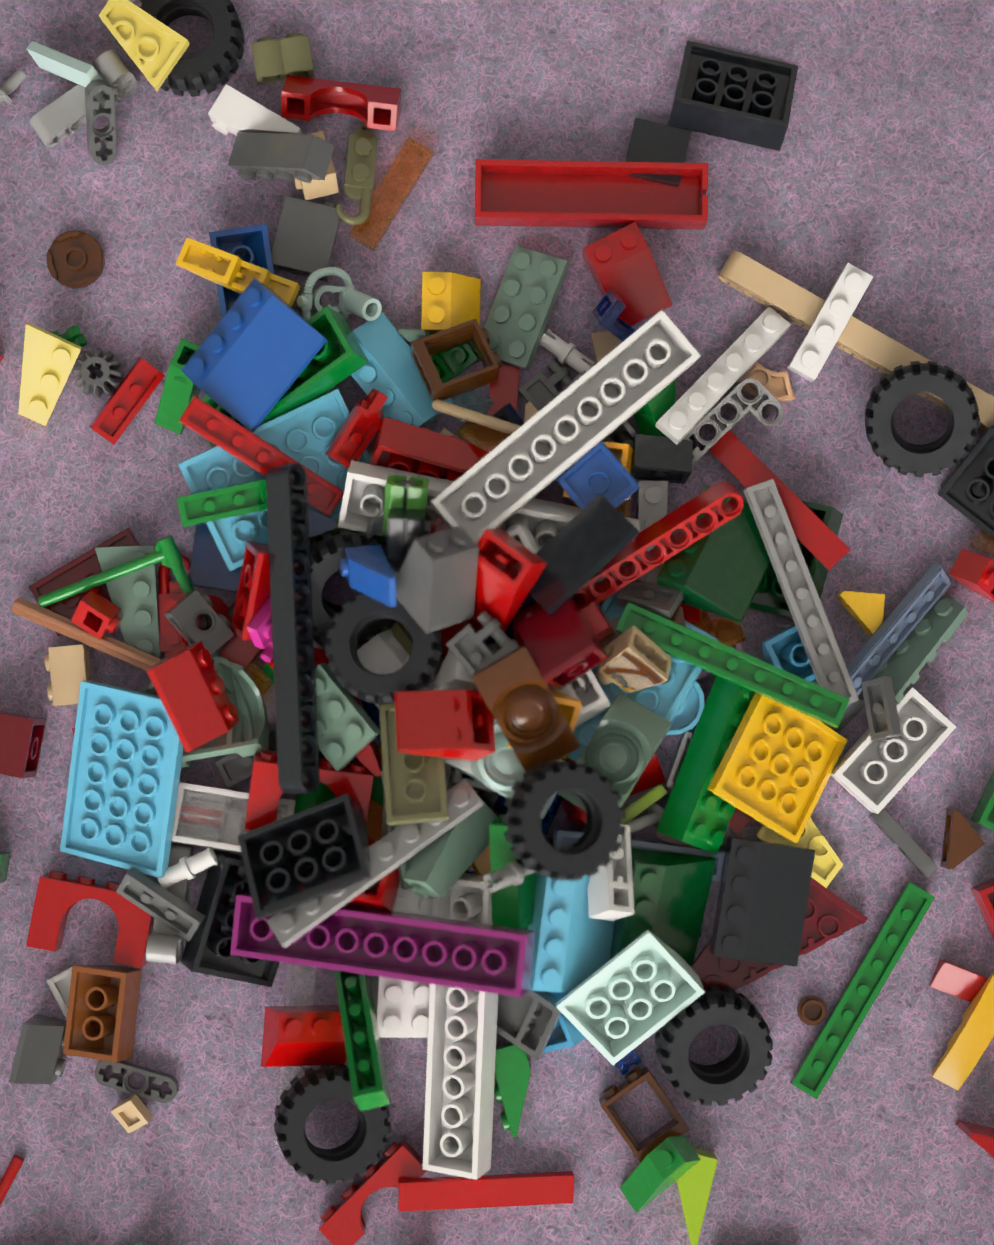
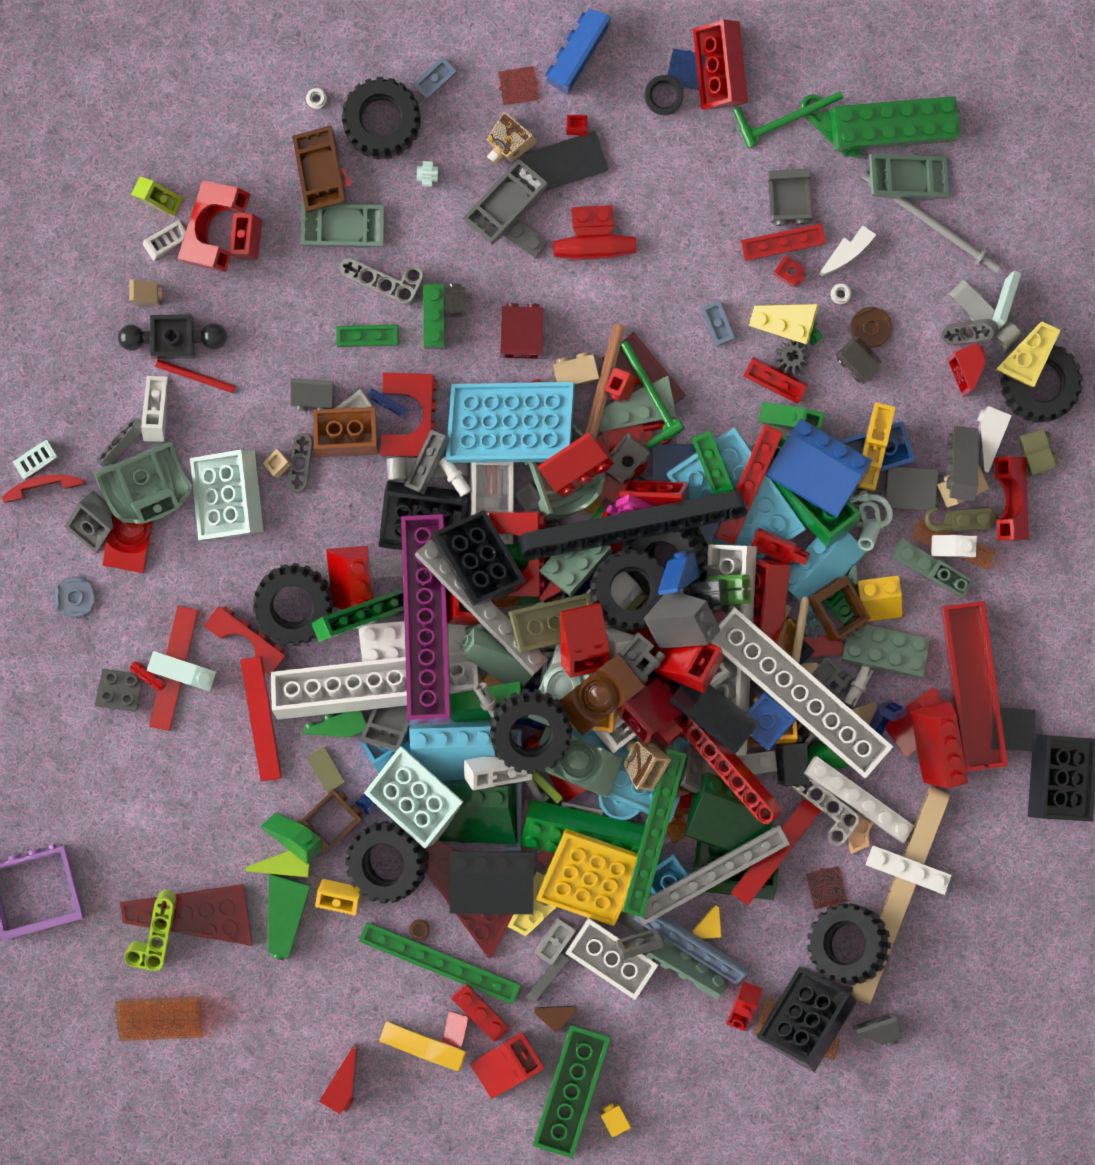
camera: 85 degrees right, 0 degrees up
(16, 287) = (840, 287): none -> white plate
(35, 468) = (717, 323): none -> sand blue plate
(71, 945) = (388, 404): none -> clear blue tile
(116, 281) = (859, 360): none -> clear smoke brick
(148, 131) = (967, 367): none -> red slope
(164, 1191) = (226, 494): none -> light aqua slope
(394, 189) = (953, 546): none -> white slope
(420, 227) = (932, 569): none -> sand green slope
(570, 1108) = (325, 769): none -> olive tile
(666, 251) = (939, 745): none -> red slope
(752, 1121) = (338, 897): none -> yellow brick
(762, 1197) = (285, 912): none -> green slope
(835, 440) = (826, 887): none -> clear red piece
(856, 825) = (554, 941): none -> light grey hinge
(938, 944) = (480, 1012): none -> red plate

